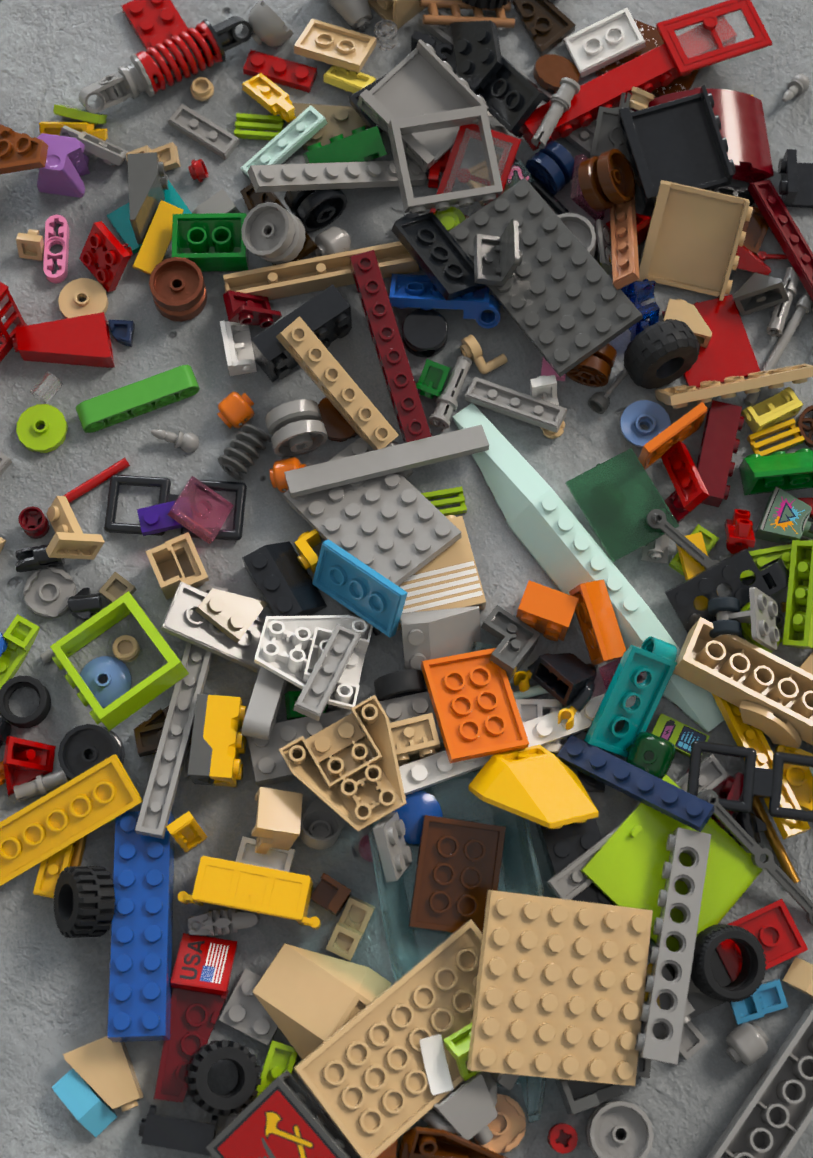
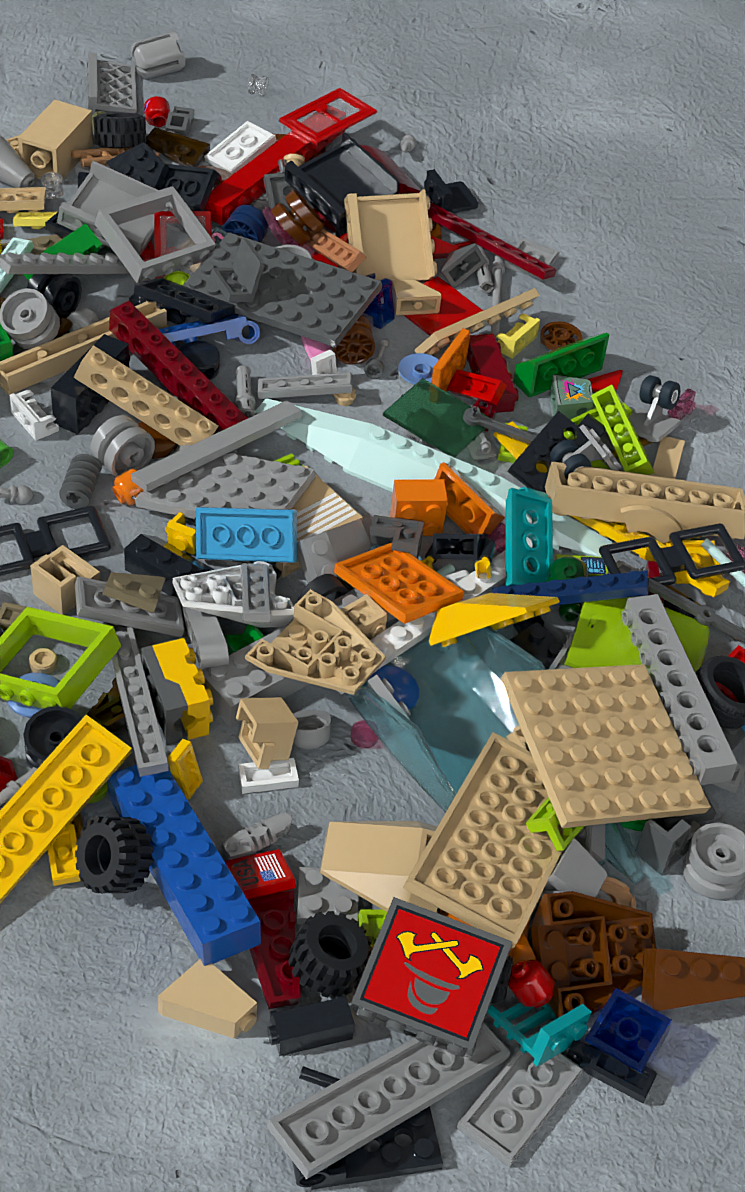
camera: 30 degrees left, 25 degrees down
(84, 1102) = (194, 1032): medium azure slope -> none
(155, 519) = (31, 547): dark purple plate -> none
(200, 510) = (64, 529): clear pink tile -> none
(236, 410) = (56, 456): orange head -> none
(249, 309) = (32, 380): dark red bracket -> none
(252, 890) = (265, 788): yellow container -> none
(331, 894) = (347, 778): reddish brown panel -> none
(350, 928) = (380, 797): tan slope -> none
(432, 379) = (226, 384): green bracket -> none
(436, 1064) = (529, 846): white sticker -> none
(454, 873) = (453, 714): reddish brown plate -> none
(472, 350) = (247, 358): tan plate -> none
(560, 103) = (231, 180): light grey pin -> none
(560, 1133) = (671, 897): red wheel -> none
(661, 354) = (408, 314): black tyre -> none
(739, 531) = (542, 410): red hips -> none
(774, 429) = (528, 350): yellow tile -> none

